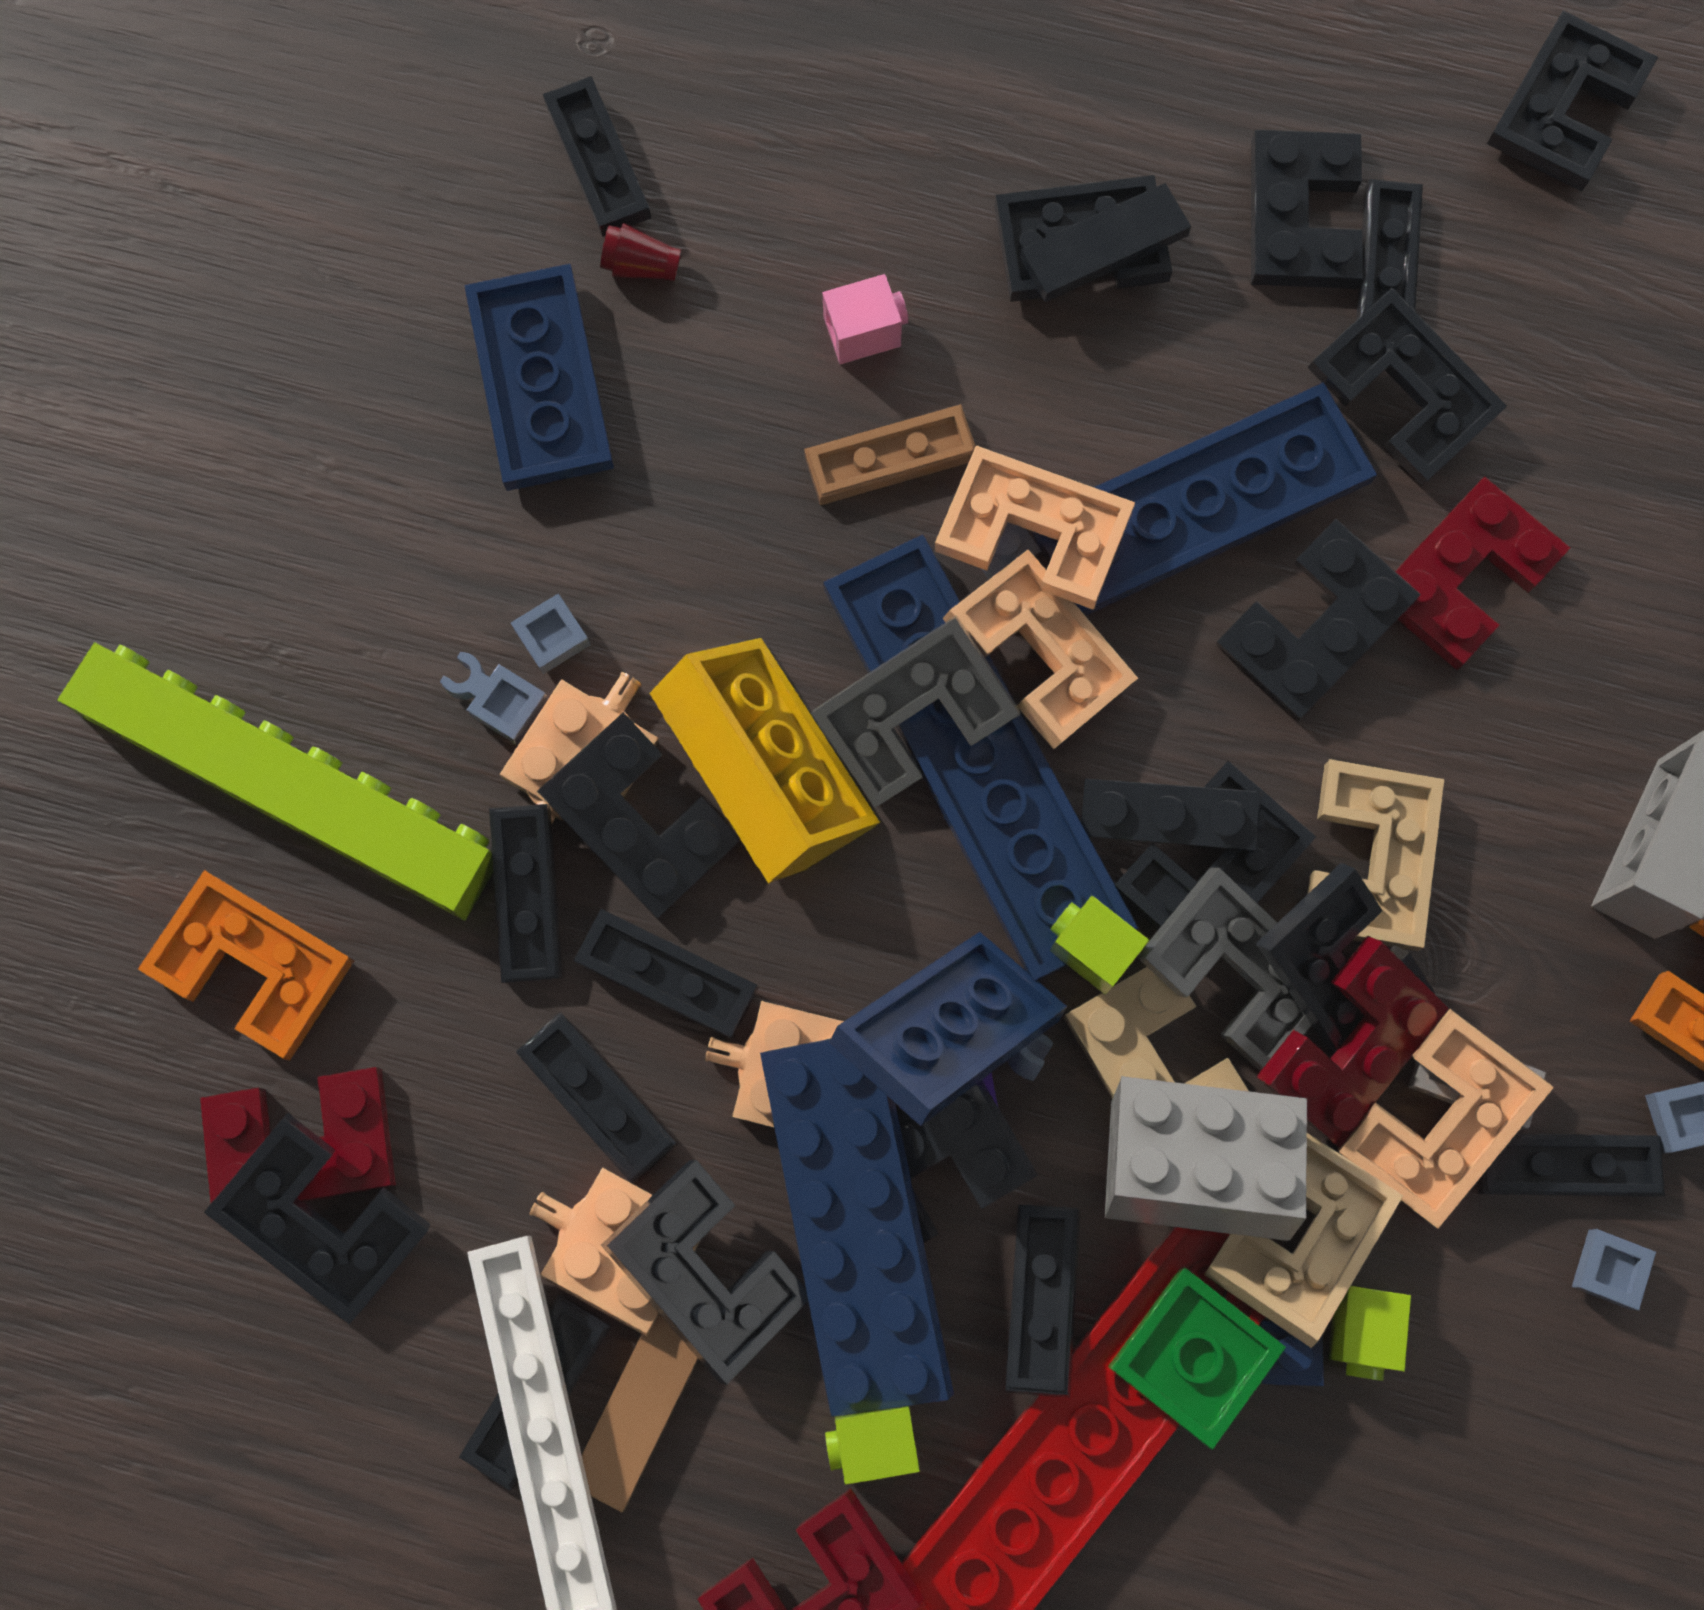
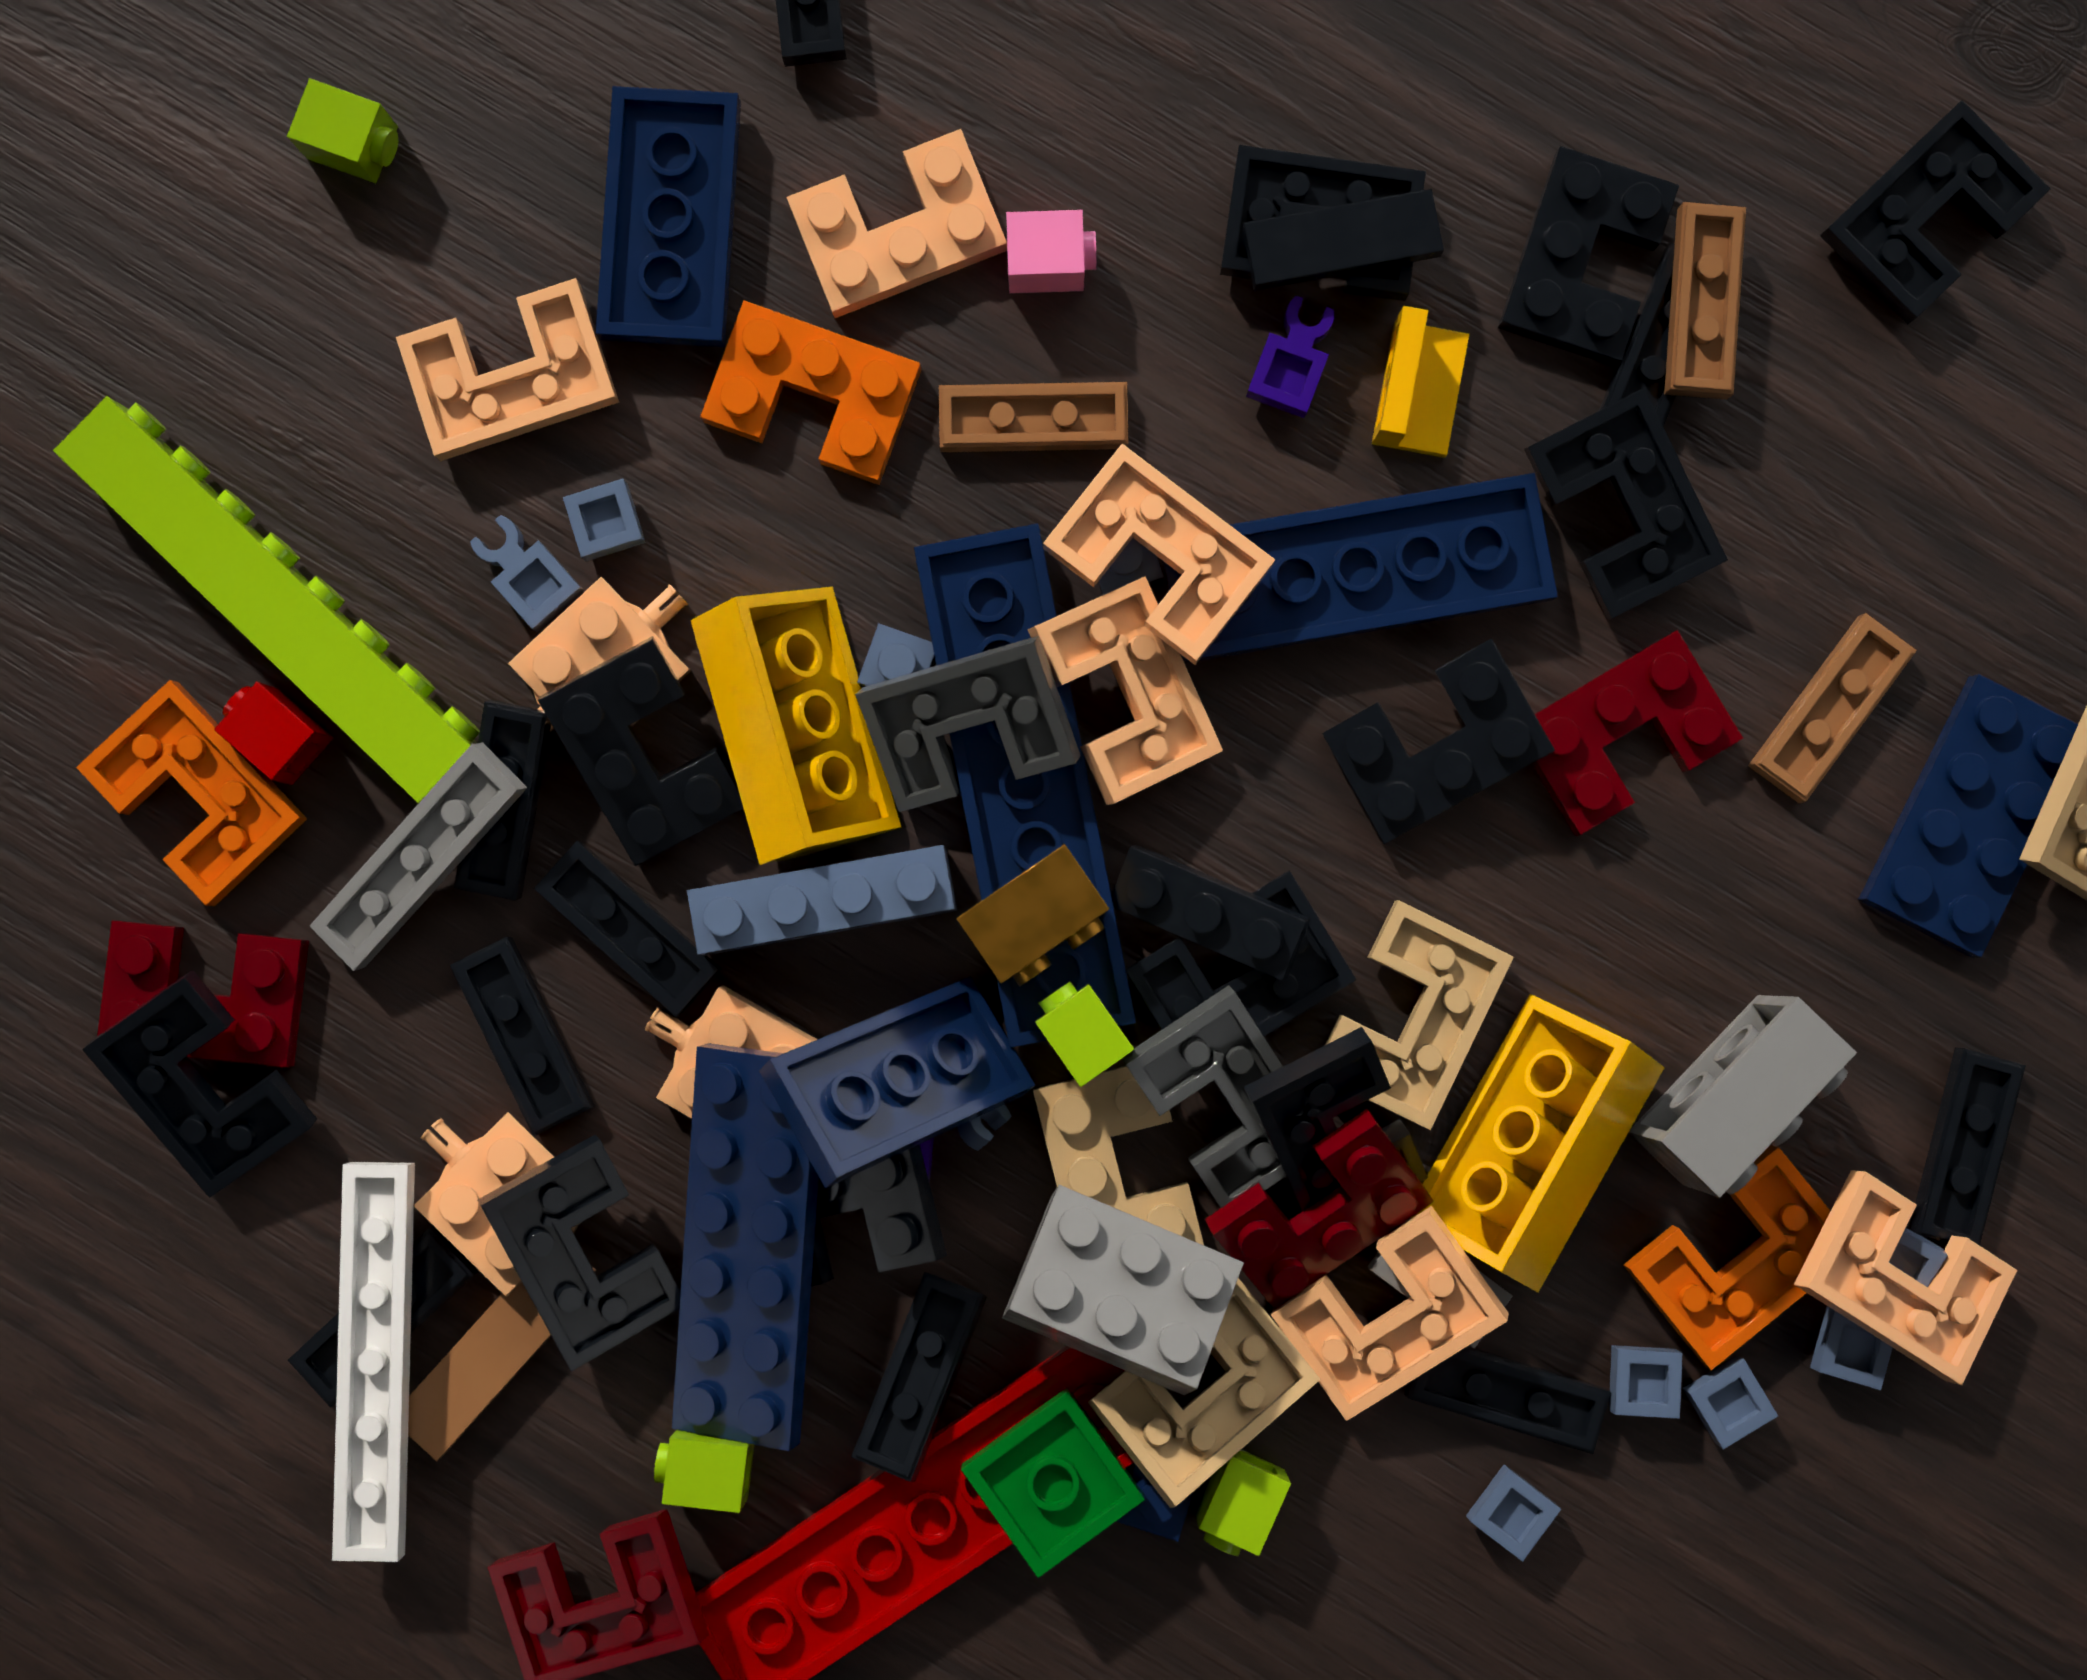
camera: 15 degrees right, 10 degrees up
(246, 380) = (344, 131): none -> lime brick
(306, 890) = (272, 732): none -> red brick
(417, 574) = (477, 410): none -> light nougat plate
(464, 960) = (418, 856): none -> light grey plate
(637, 255) = (817, 102): dark red cone -> none
(667, 458) = (781, 351): none -> orange plate
(714, 373) = (872, 265): none -> light nougat plate
(830, 676) = (894, 655): none -> sand blue plate
(834, 898) = (822, 900): none -> sand blue brick
(1023, 854) = (1035, 915): none -> pearl gold brick
(1092, 353) = (1289, 365): none -> dark purple plate
(1203, 343) = (1420, 385): none -> yellow panel
(1415, 213) = (1705, 300): none -> medium nougat tile
(1520, 927) = (1538, 1139): none -> yellow slope
(1633, 506) = (1832, 708): none -> medium nougat tile

